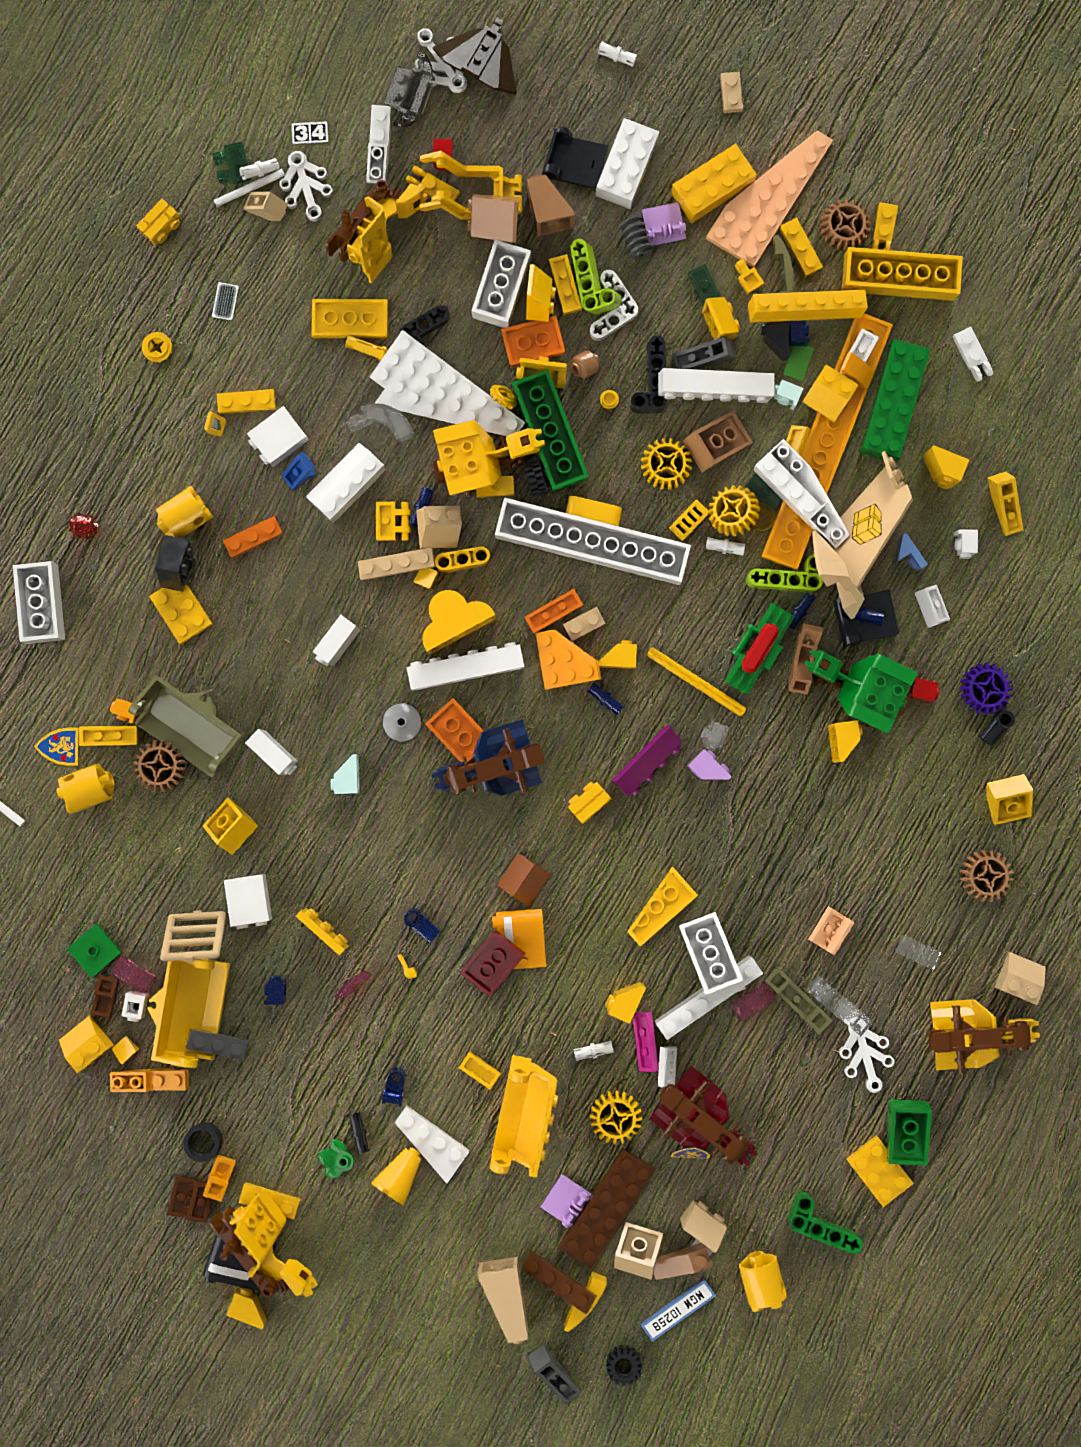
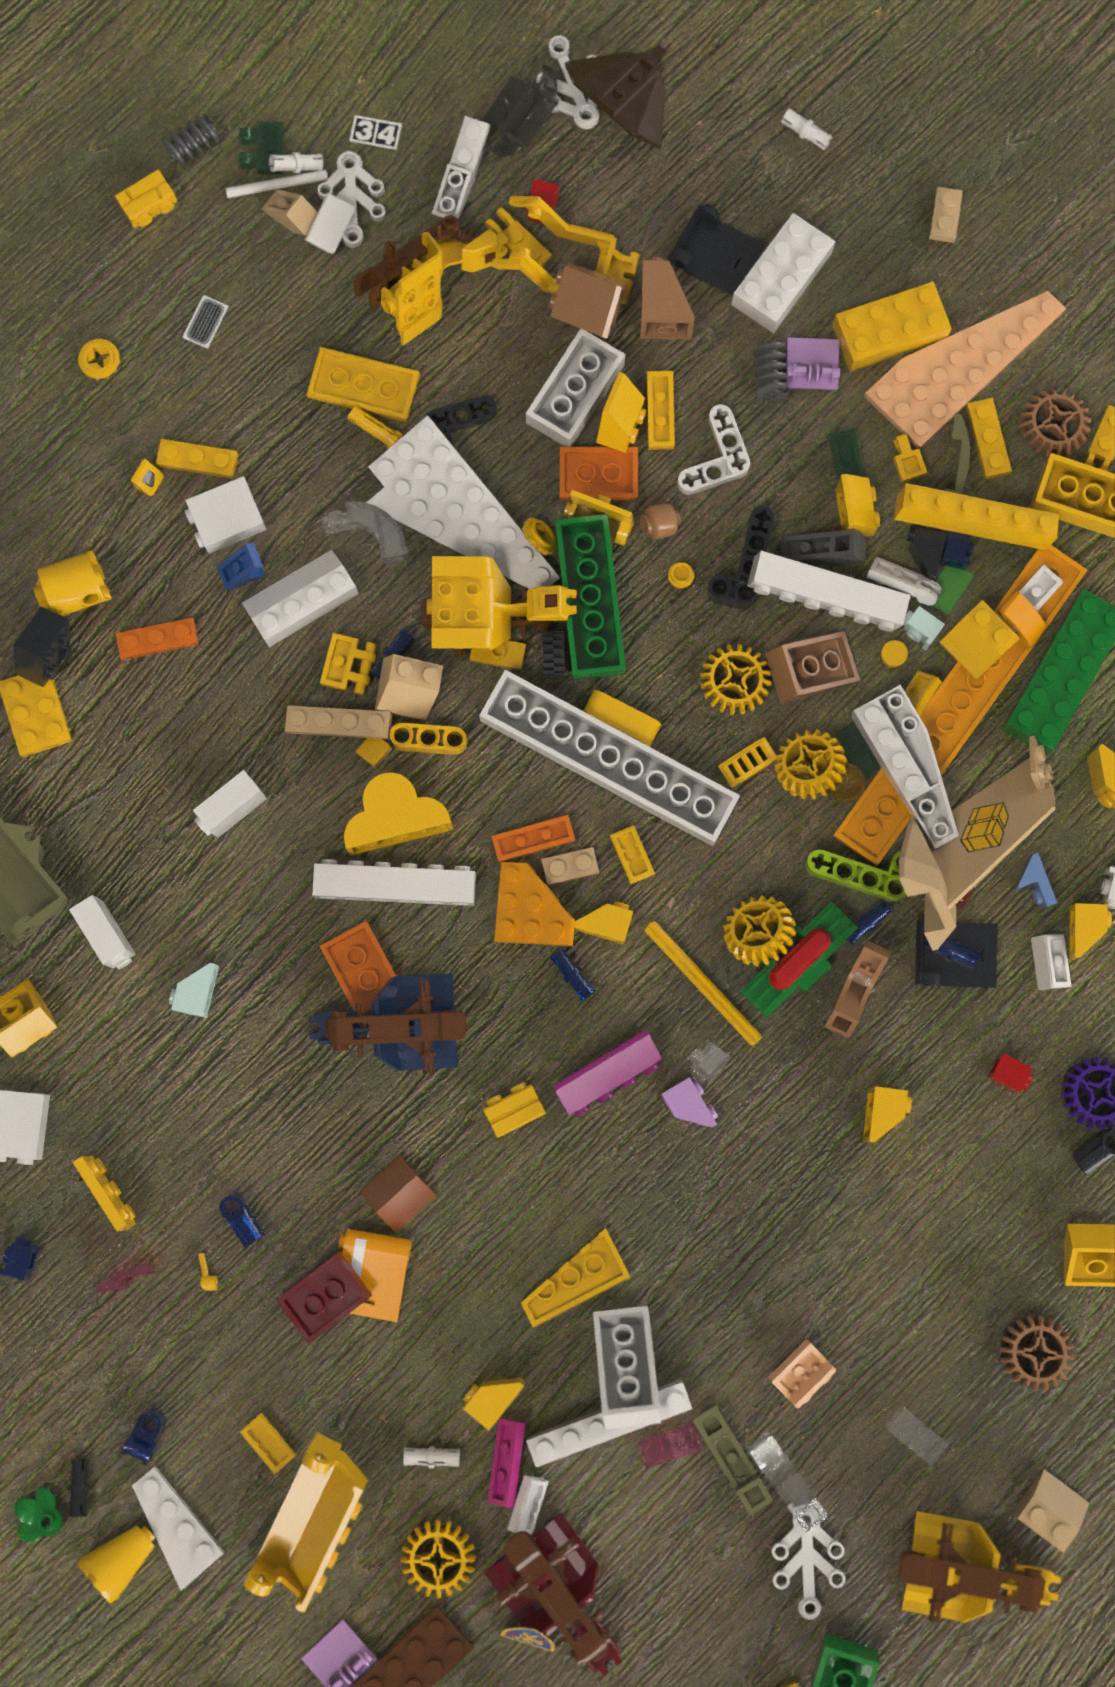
camera: 15 degrees right, 5 degrees down
(178, 170) = (190, 139): none -> dark grey piece
(295, 207) = (330, 223): none -> white slope
(406, 731) = (299, 946): light grey dish -> none
(588, 276) = (692, 377): lime beam -> none
(625, 605) = (632, 854): none -> yellow plate
(725, 546) = (787, 809): white pin -> none
(726, 625) = (757, 945): none -> yellow gear
(767, 364) = (904, 581): none -> white hinge
(772, 417) = (894, 654): none -> yellow tile
(870, 691) = (935, 1056): green piece -> none
(951, 576) = (1087, 926): none -> yellow slope

